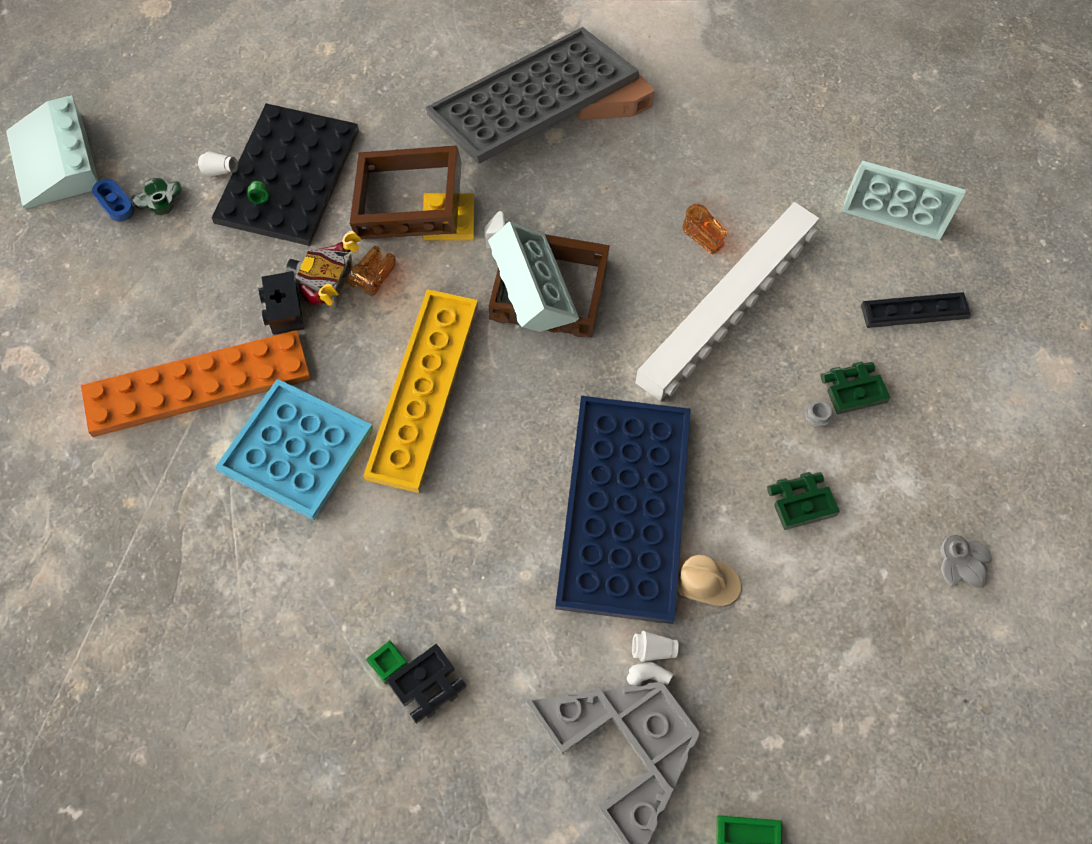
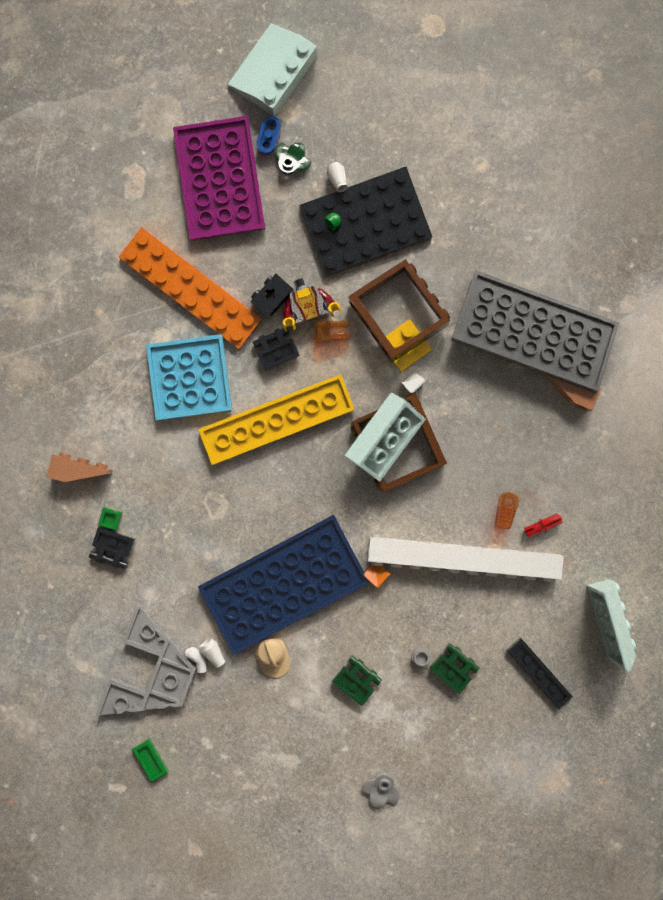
camera: 60 degrees right, 25 degrees up
(108, 274) = (219, 178): none -> magenta plate
(288, 662) = (69, 470): none -> nougat slope
(350, 339) = (278, 353): none -> black plate
(687, 397) = (376, 574): none -> orange slope
(746, 208) = (543, 525): none -> red axle

